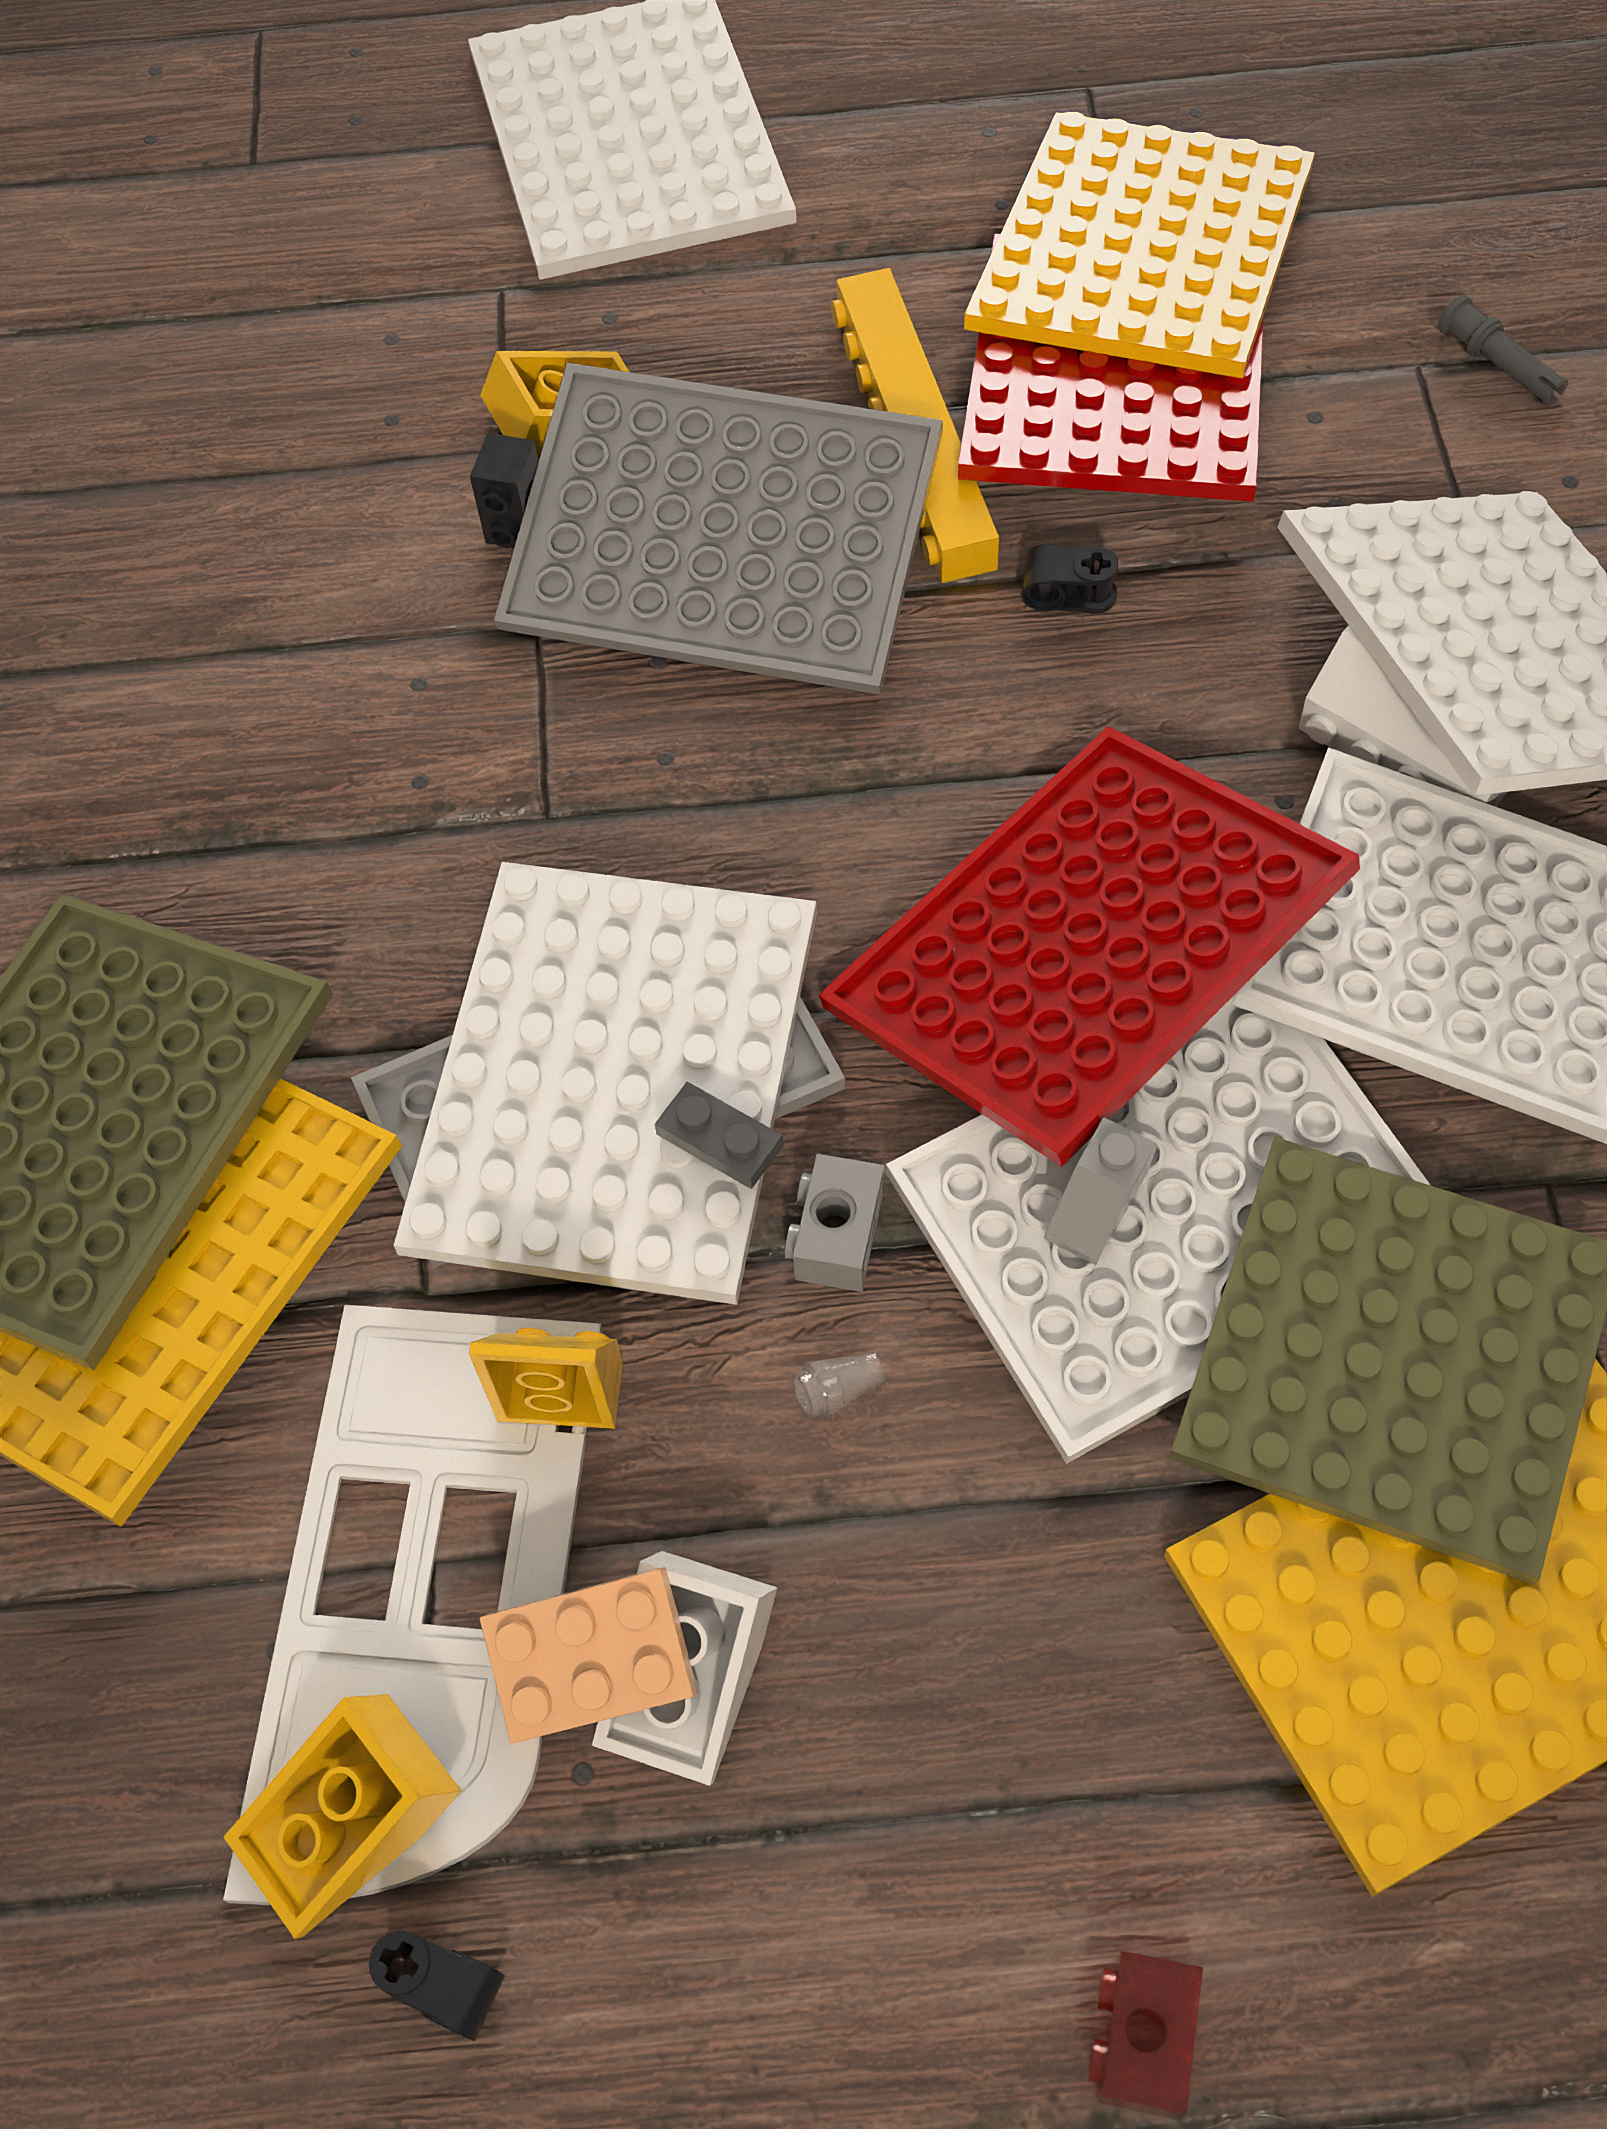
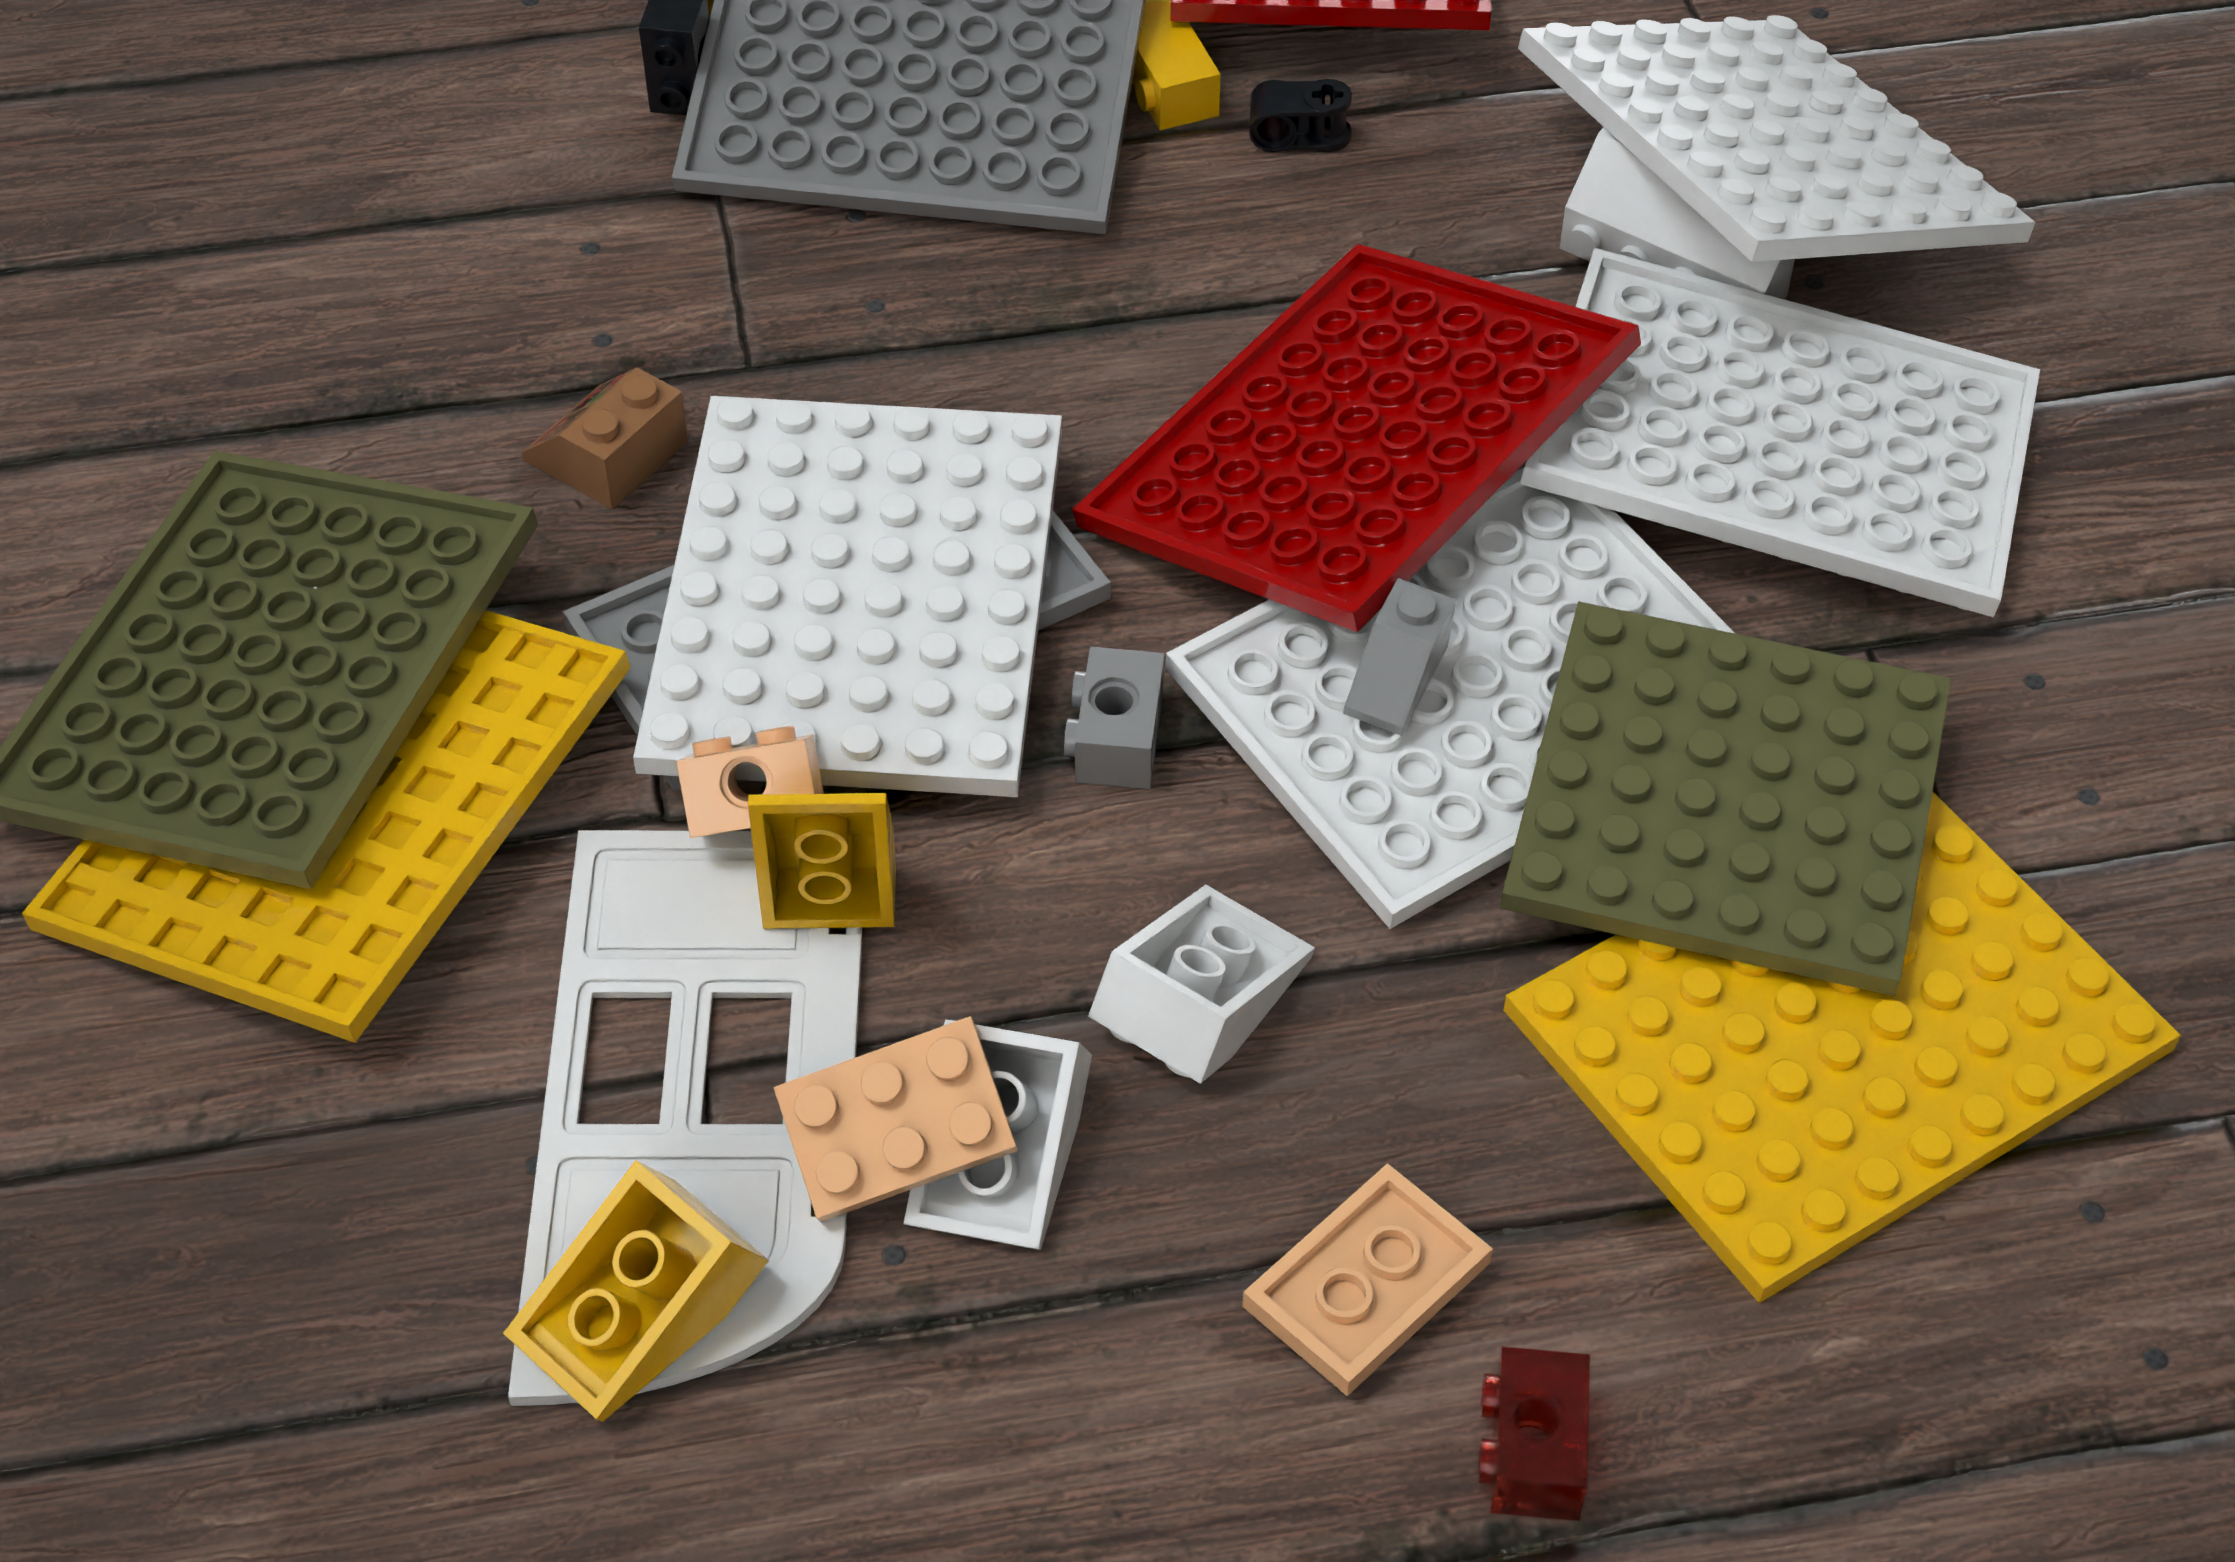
camera: 10 degrees left, 10 degrees down
(414, 892) = (613, 437): none -> medium nougat slope
(447, 1984) = (760, 1448): black piece -> none
(467, 1303) = (709, 777): none -> light nougat brick
(719, 1135) = (983, 628): dark grey plate -> none
(835, 1382) = (1129, 867): clear cone -> none
(884, 1512) = (1197, 982): none -> white slope
(1006, 1847) = (1367, 1278): none -> light nougat plate

